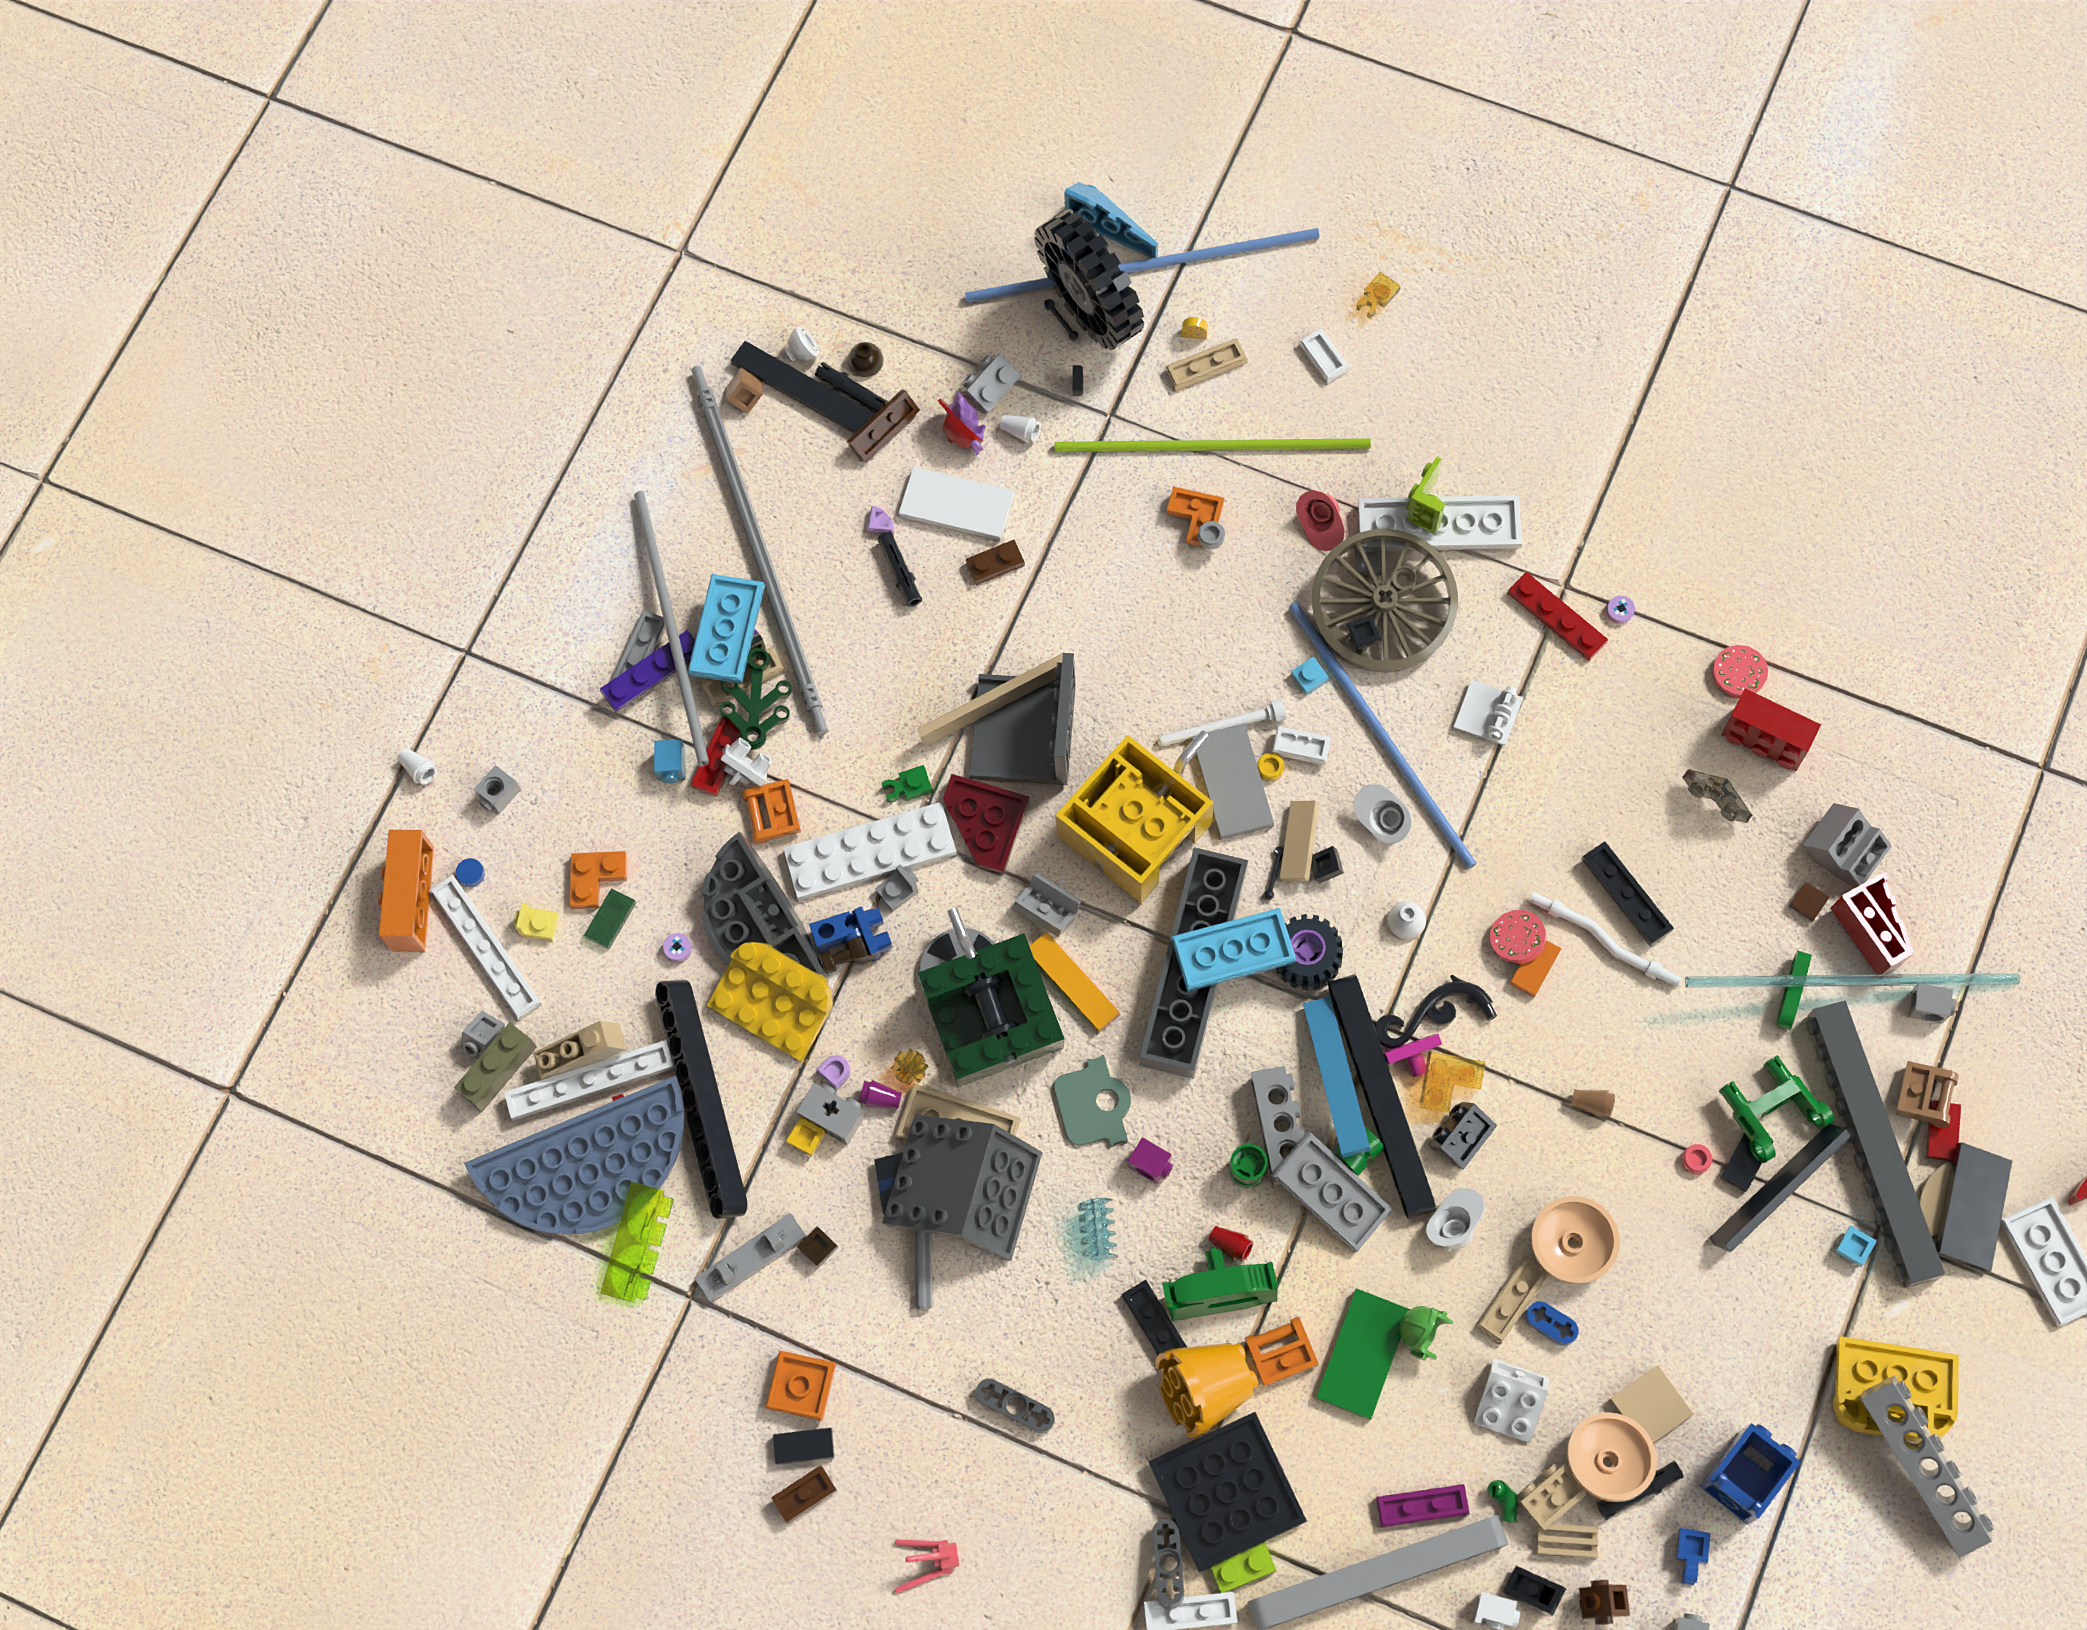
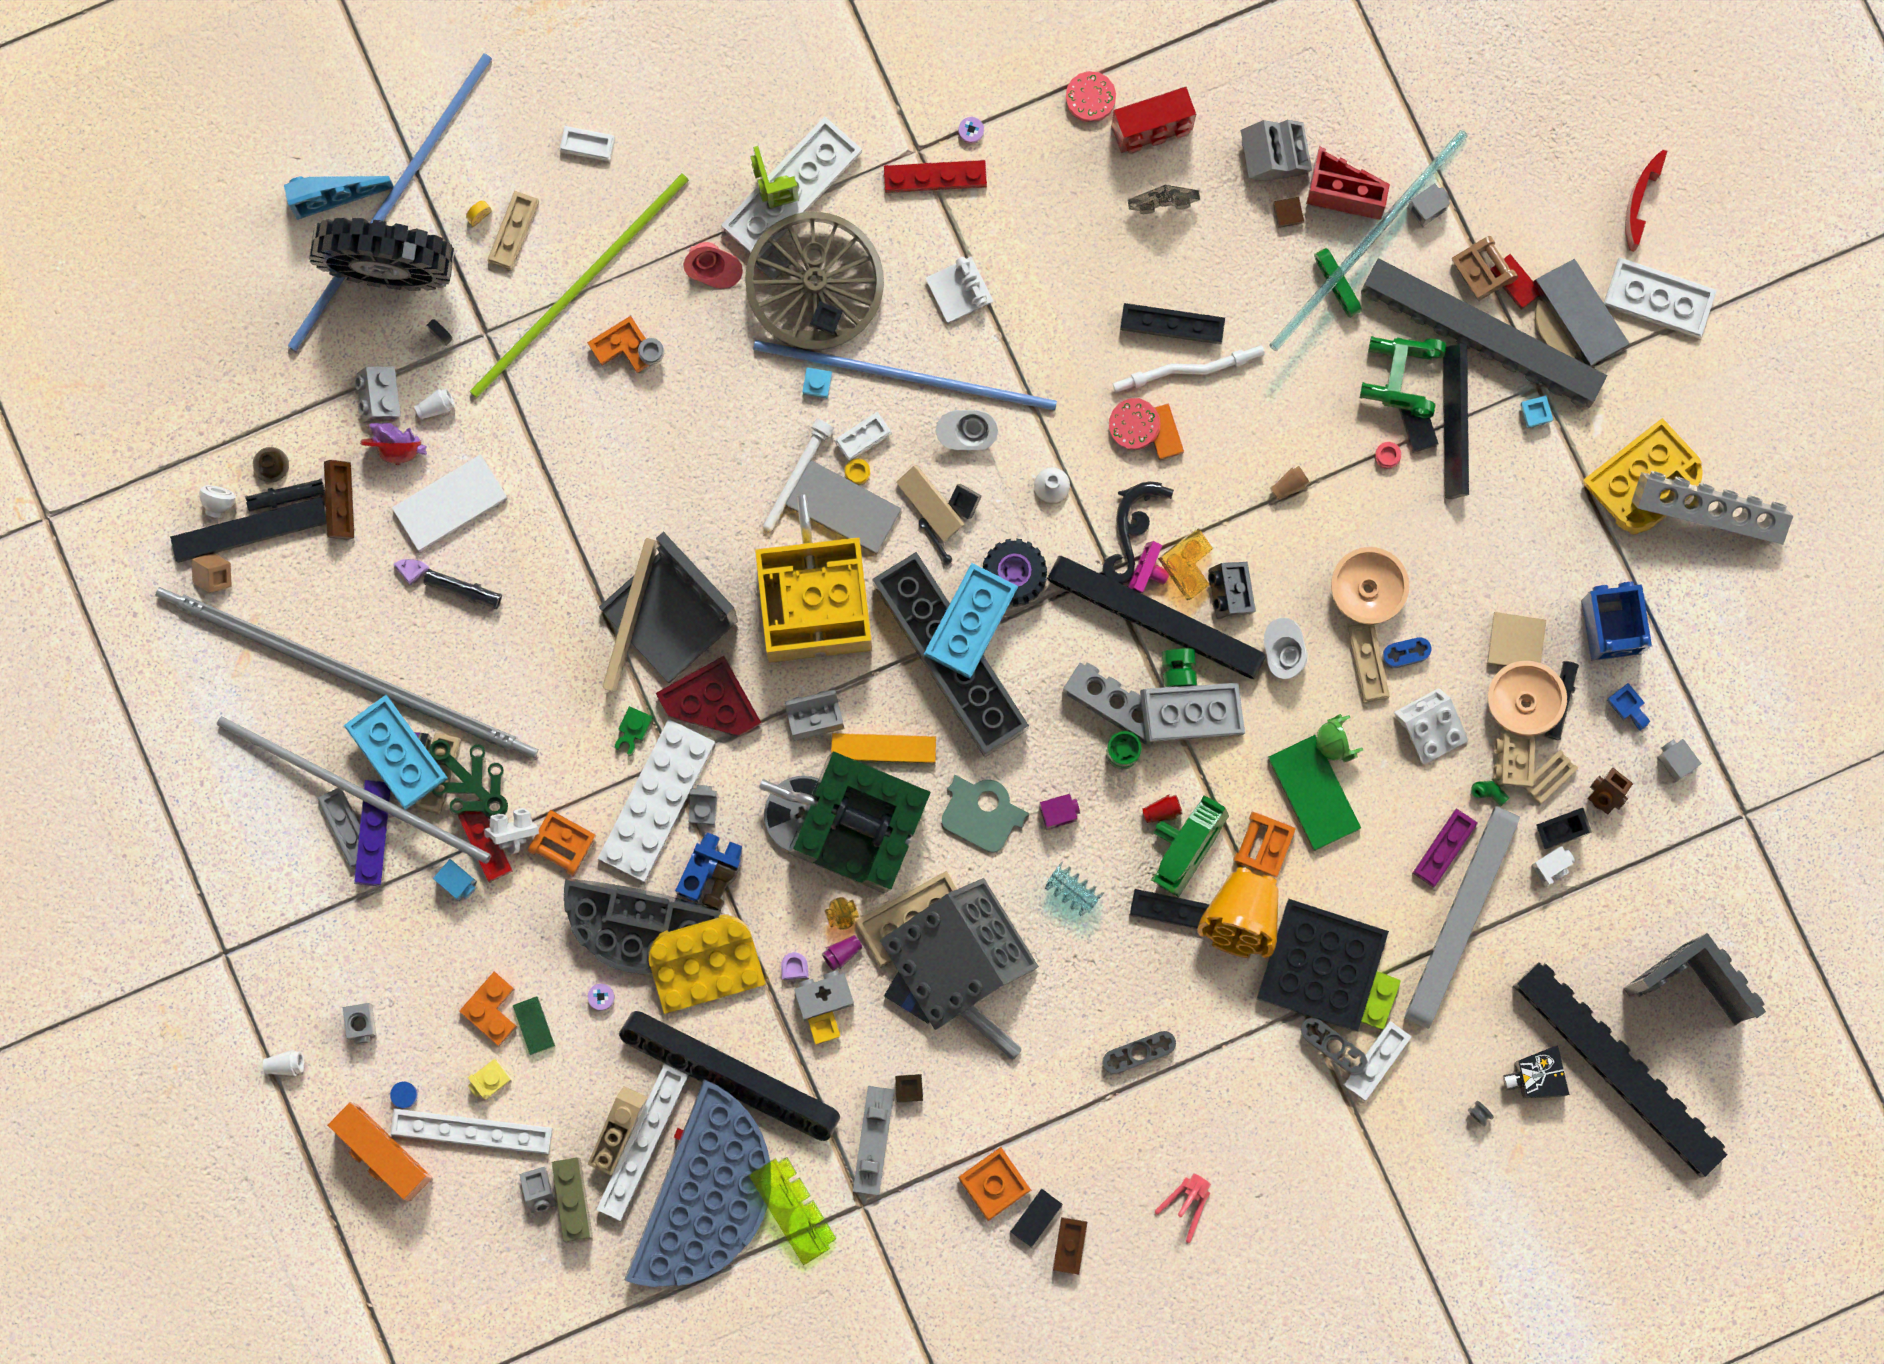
camera: 55 degrees left, 10 degrees up
(995, 562) = (521, 517): reddish brown plate -> none
(1049, 305) = (356, 295): black hinge -> none
(1336, 1077) = (1118, 635): dark azure tile -> none
(1378, 292) = (577, 59): clear yellow plate -> none

